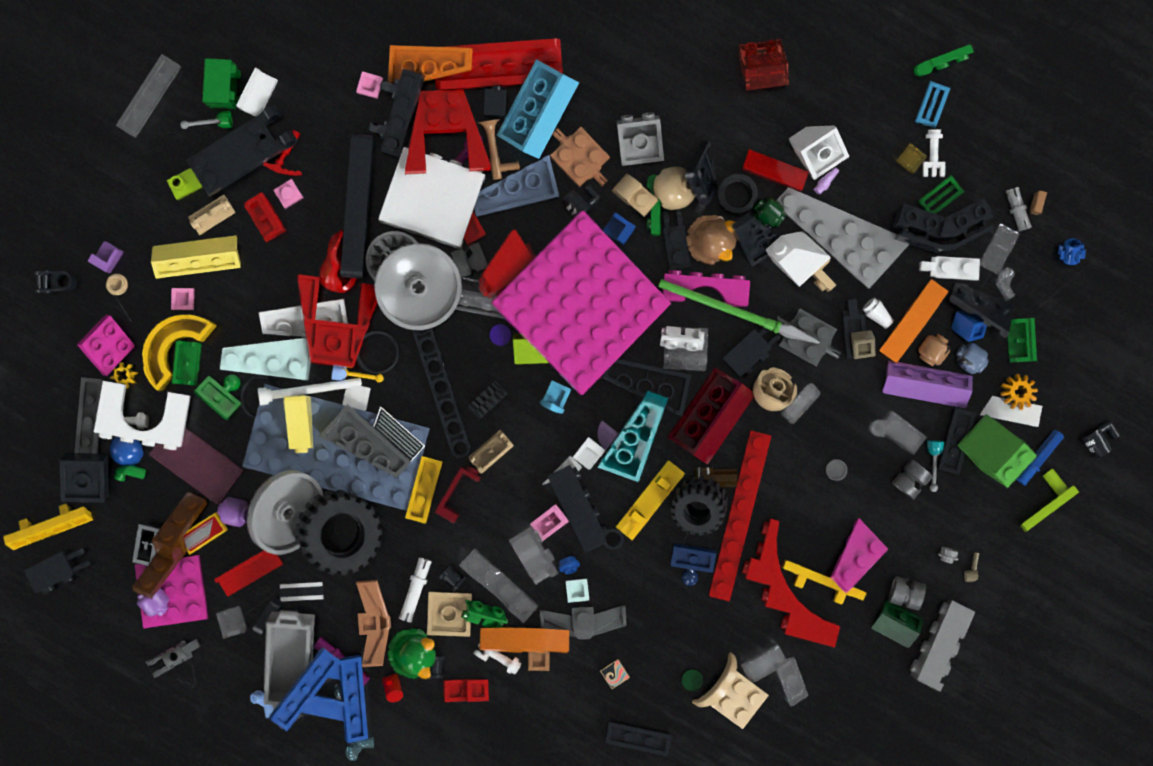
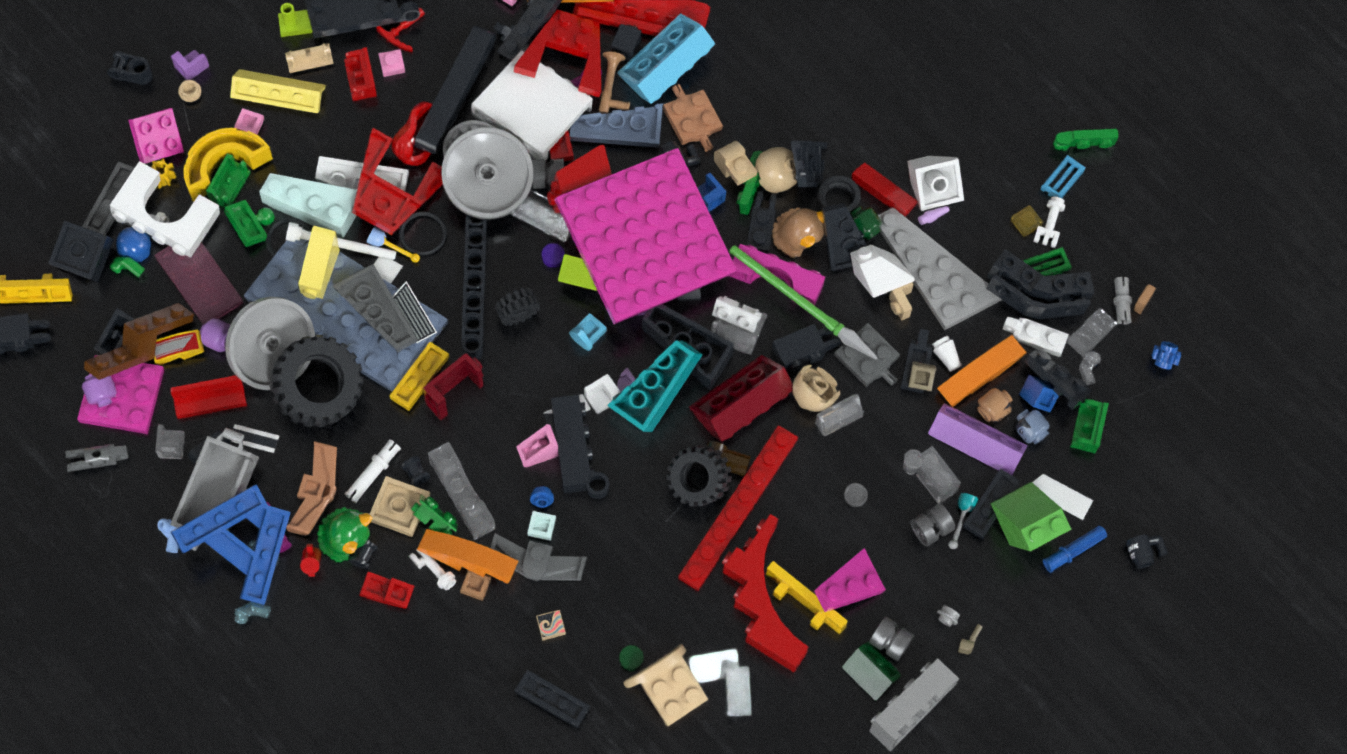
camera: 15 degrees right, 20 degrees down
(490, 451) = (503, 362): tan hinge -> none
(533, 555) = (508, 474): clear hinge -> none
(640, 139) = (758, 117): light grey plate -> none
(650, 500) = (648, 462): yellow hinge -> none
(692, 559) = (674, 533): dark blue plate -> none
(764, 64) = (904, 88): clear red slope -> none
(1024, 398) = (1065, 468): light orange gear -> none
(1061, 490) = (1088, 595): lime piece -> none

